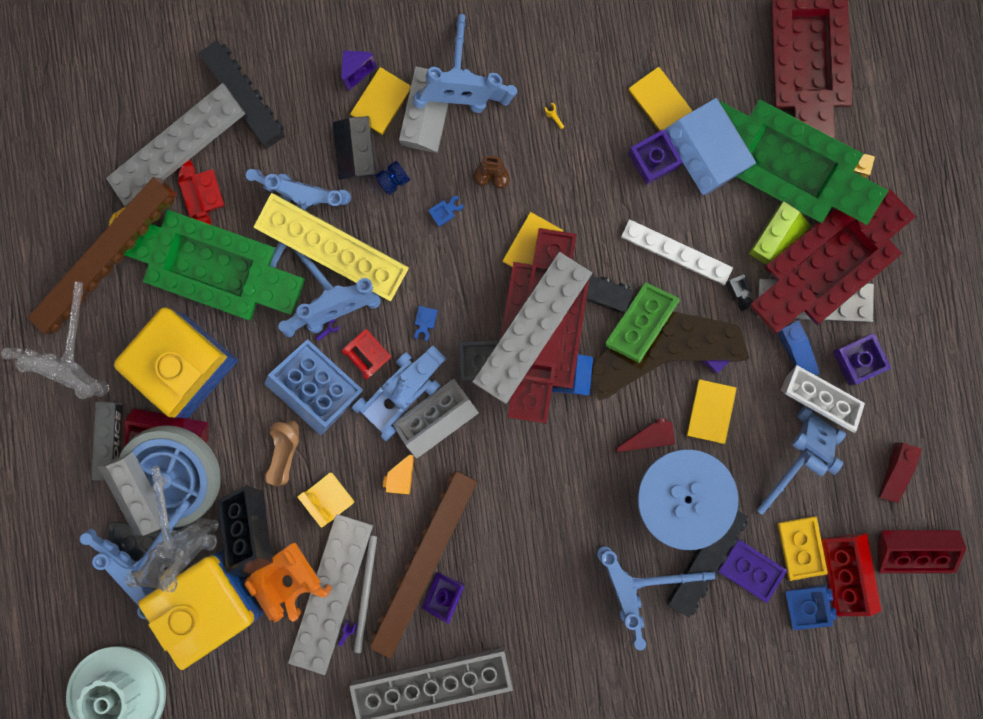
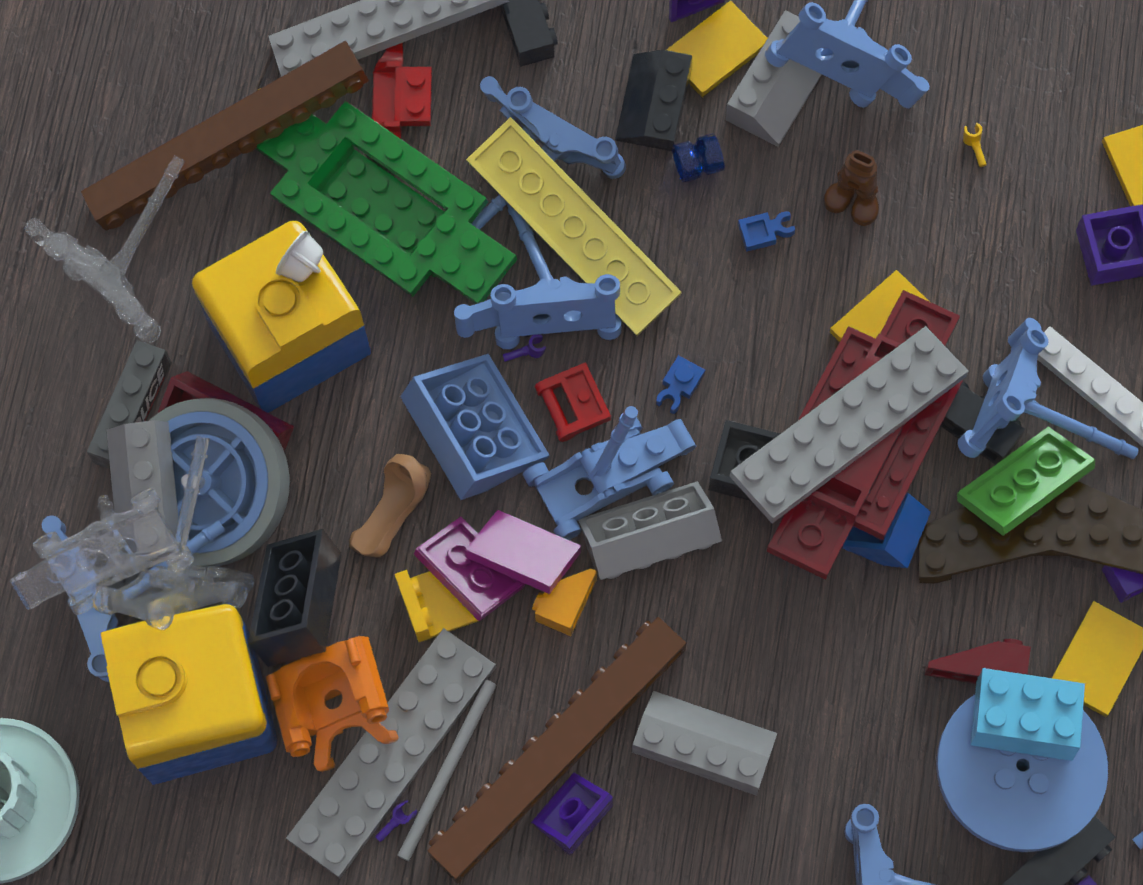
camera: 20 degrees right, 15 degrees down
(121, 553) = (101, 554): none -> clear piece
(174, 338) = (301, 258): none -> white piece
(339, 474) = (471, 583): none -> magenta tile
(367, 456) = (523, 551): none -> tile
(505, 532) = (704, 742): none -> light grey slope
(621, 272) = (1013, 391): none -> medium blue piece
(684, 473) = (1028, 714): none -> medium azure brick

